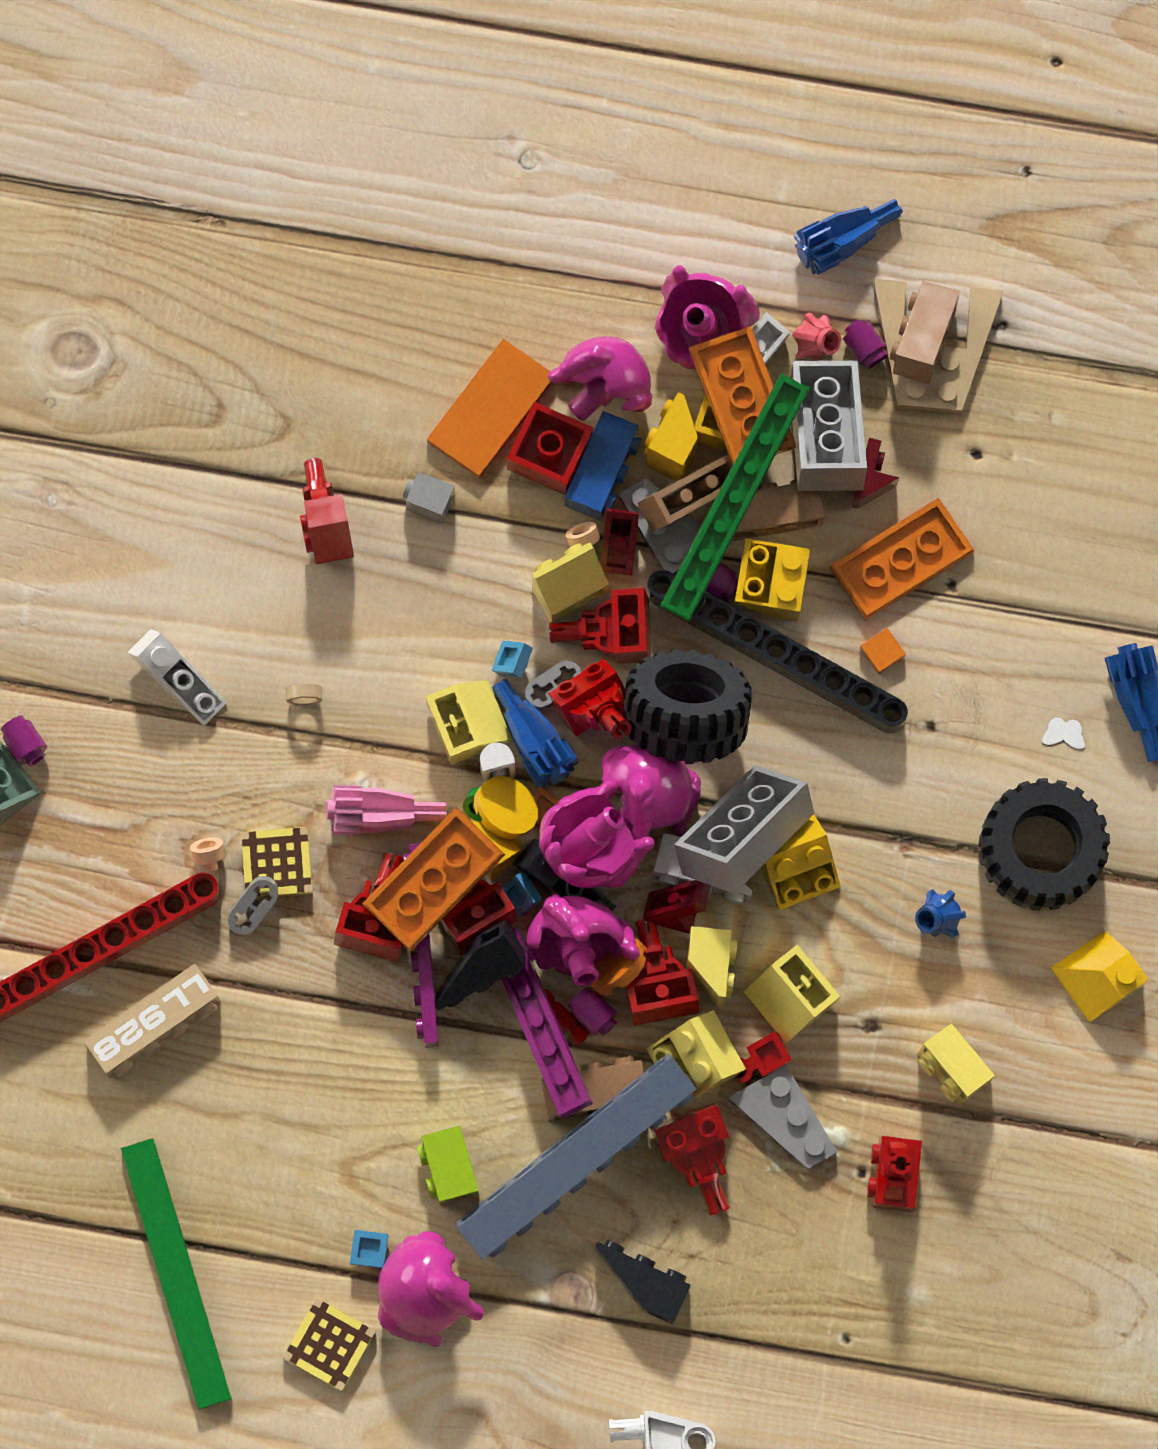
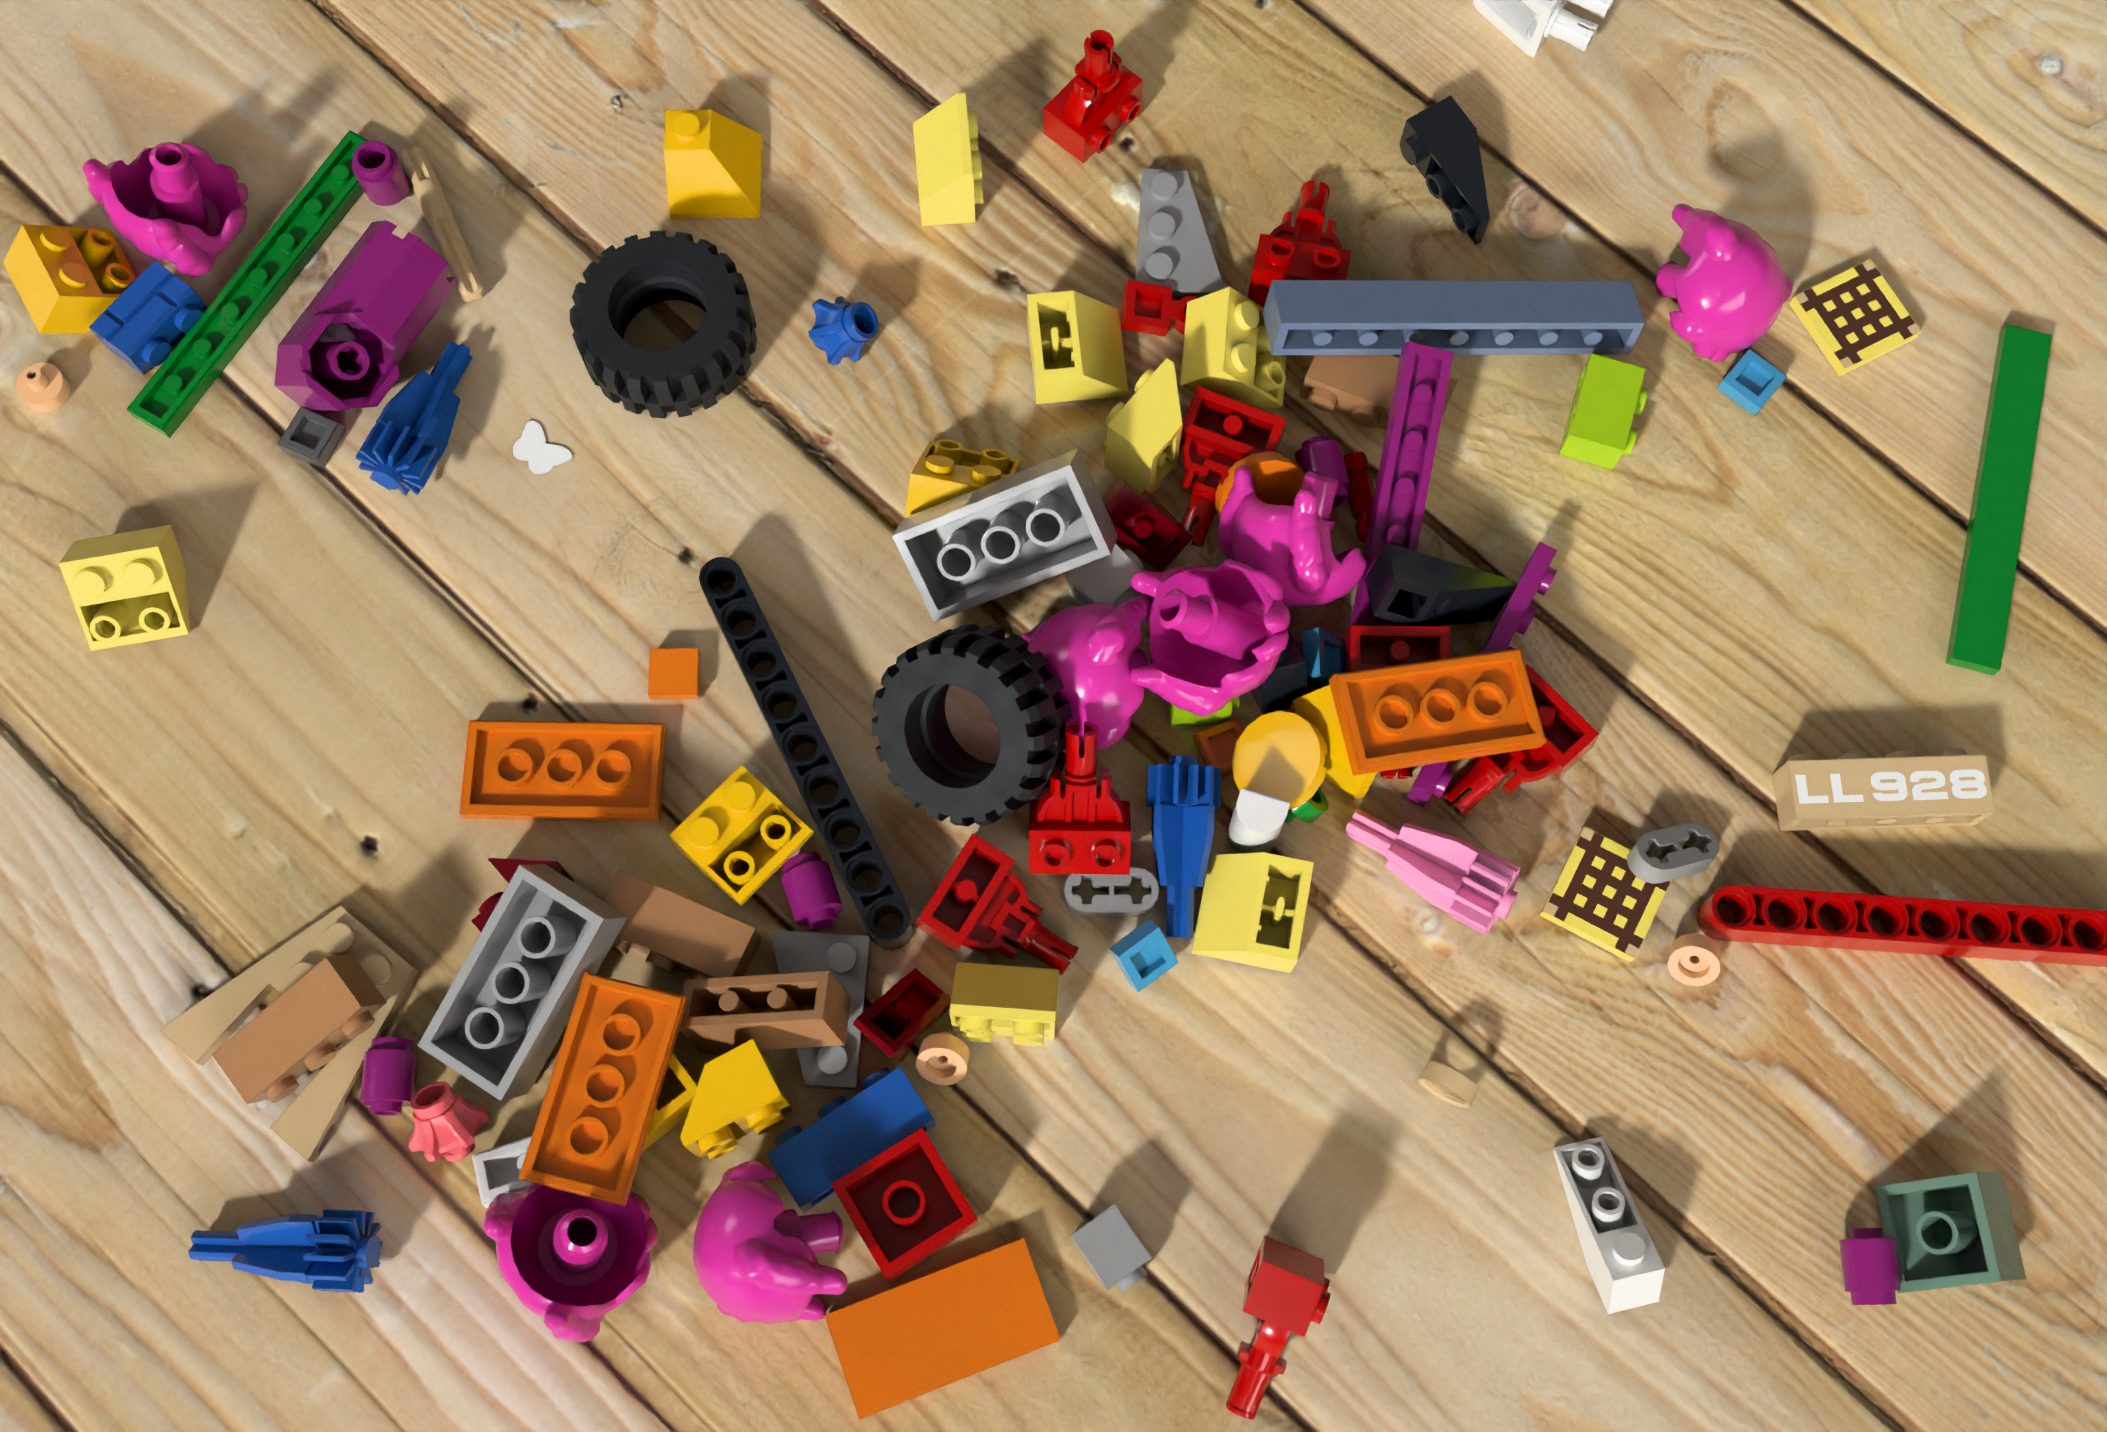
camera: 145 degrees left, 5 degrees down
(734, 497) = (710, 956): green tile -> none

